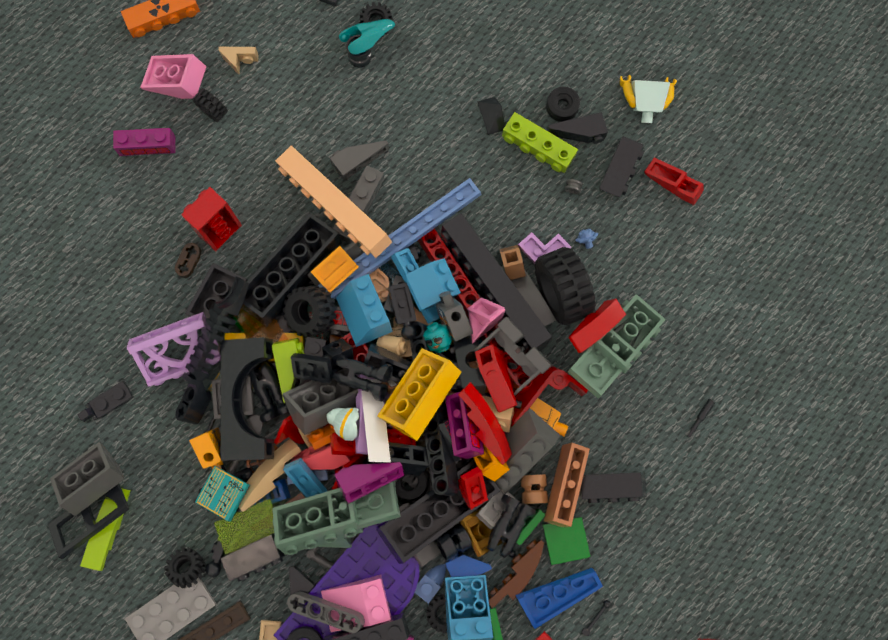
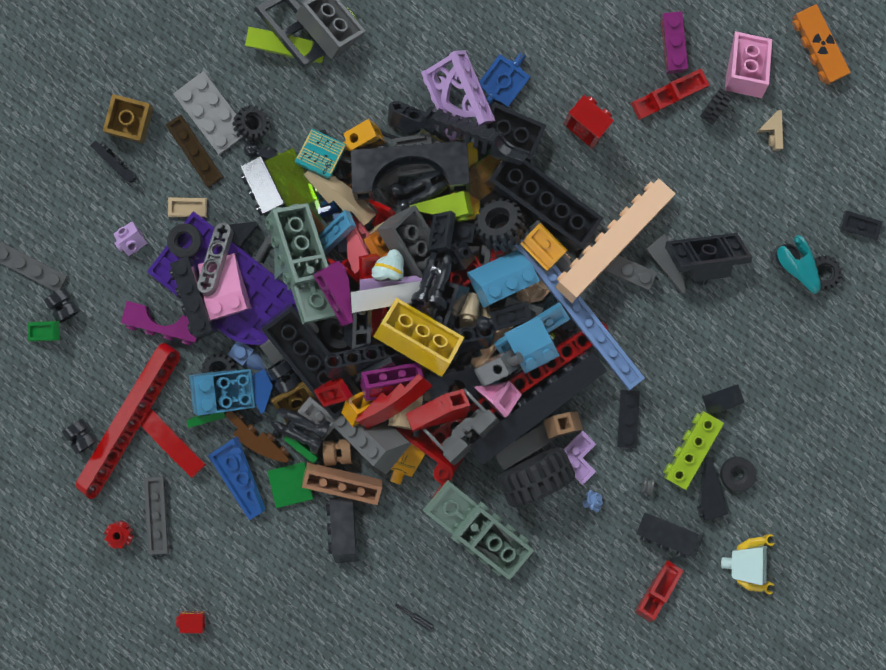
camera: 90 degrees right, 10 degrees up
(106, 402) = (405, 32): black hinge -> none
(164, 303) = (504, 80): none -> blue plate
(183, 258) = (553, 93): dark brown beam -> none
(195, 149) = (670, 94): none -> red slope
(353, 115) = (708, 256): none -> black brick
(437, 337) = (478, 352): teal head -> none
(507, 202) = (628, 419): none -> black plate
(586, 631) = (207, 505): black hinge -> none
(597, 325) = (495, 508): red slope -> none

